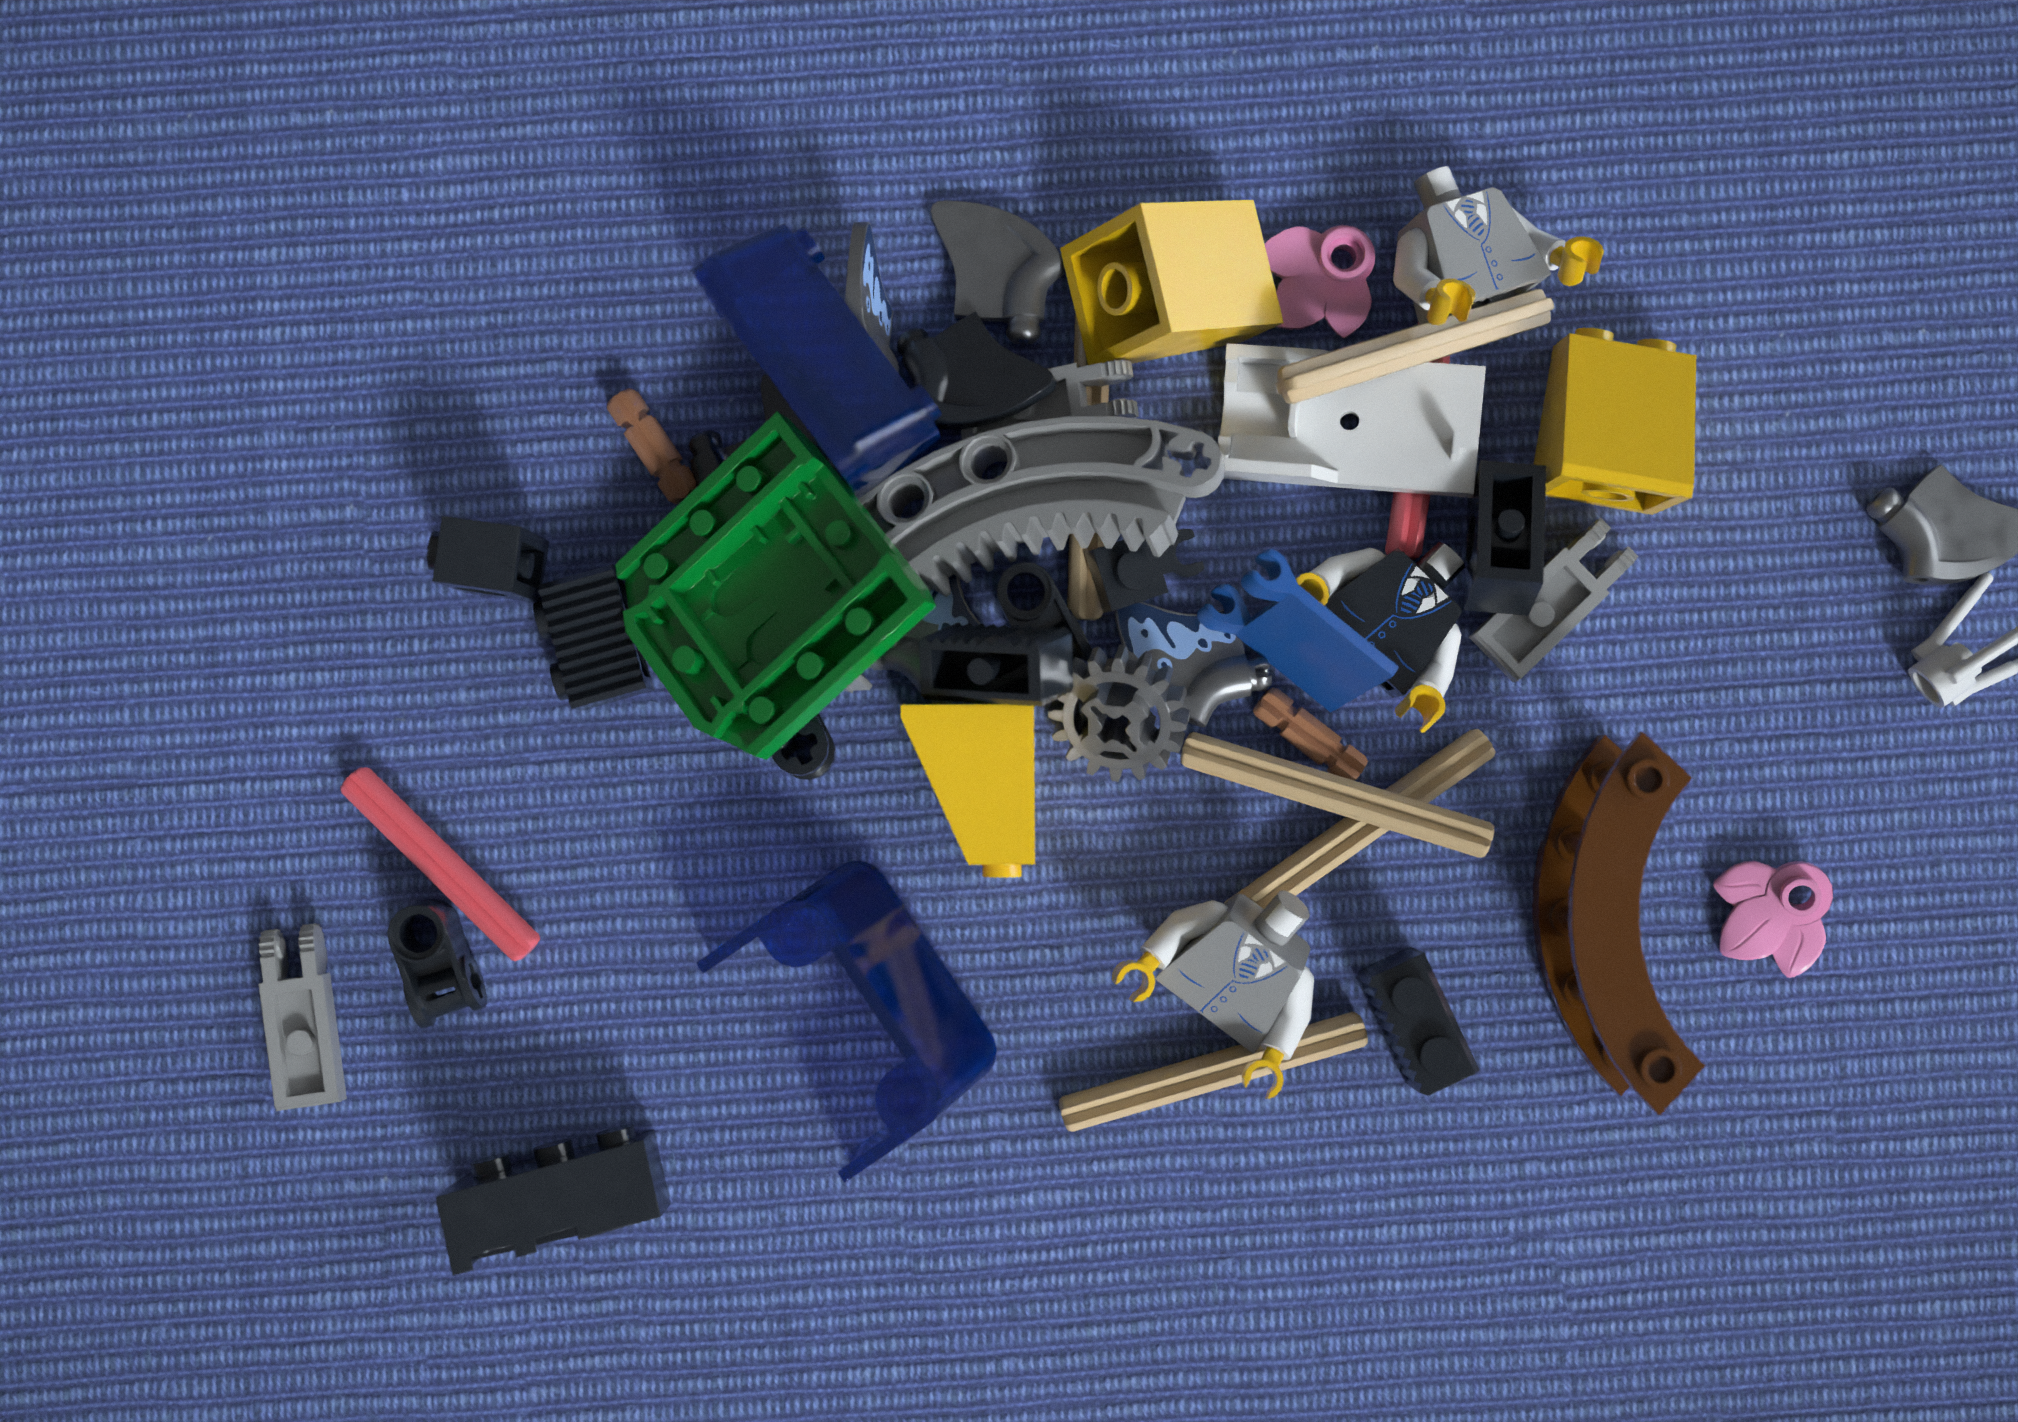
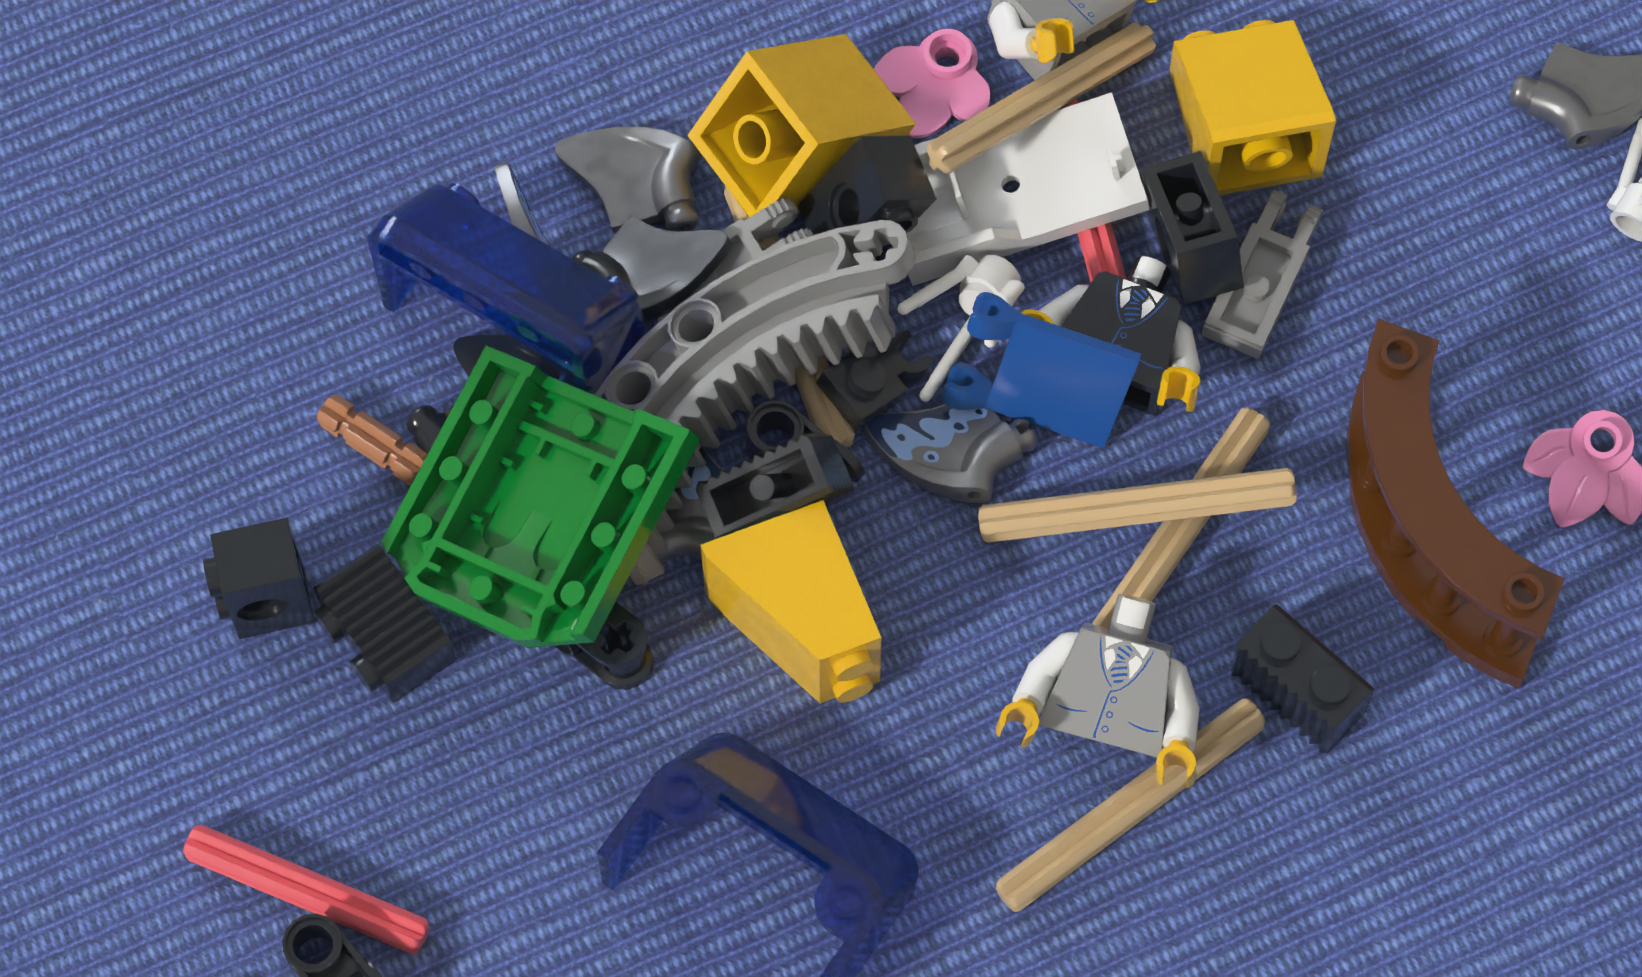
camera: 20 degrees left, 20 degrees down
(1118, 706) = (931, 520): flat silver gear -> none
(1207, 388) = (868, 184): none -> black brick
(1283, 520) = (989, 275): none -> white plant
(1309, 735) = (1087, 468): nougat axle -> none

